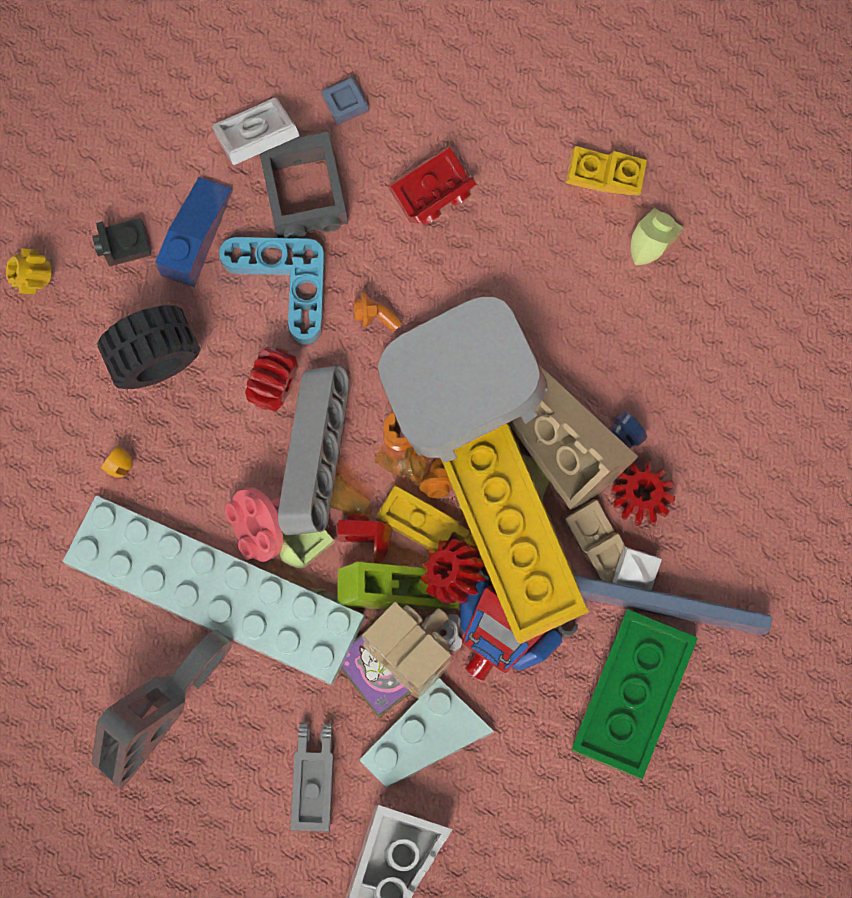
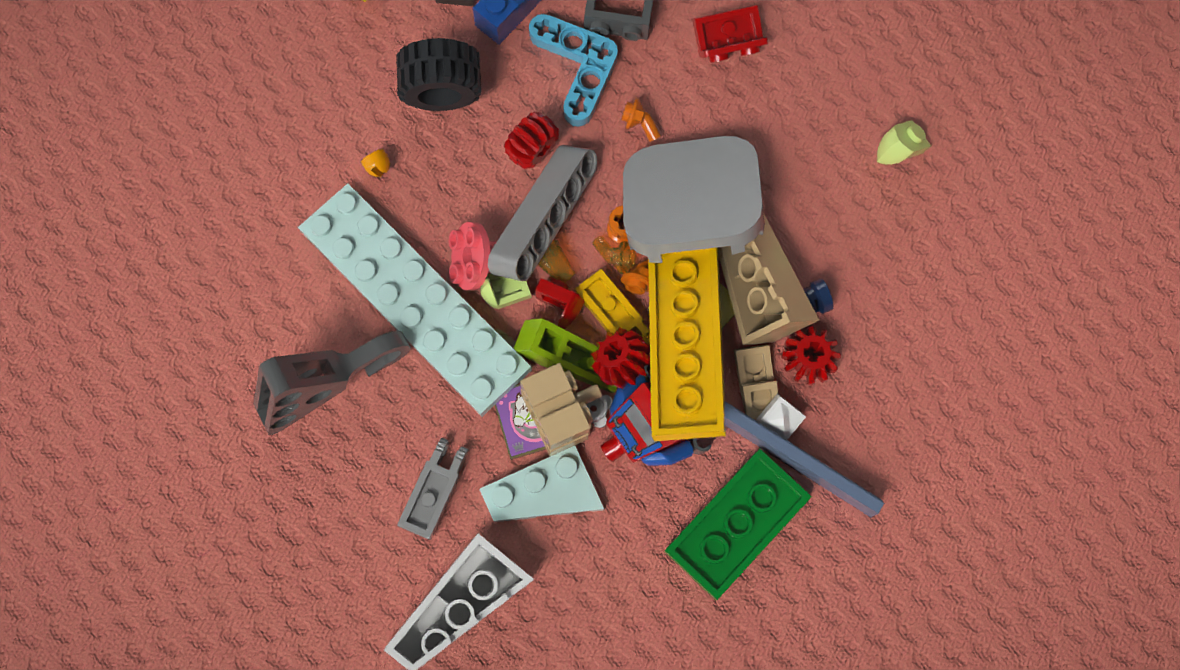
camera: 15 degrees right, 0 degrees up
(606, 173) = (881, 77): yellow slope -> none

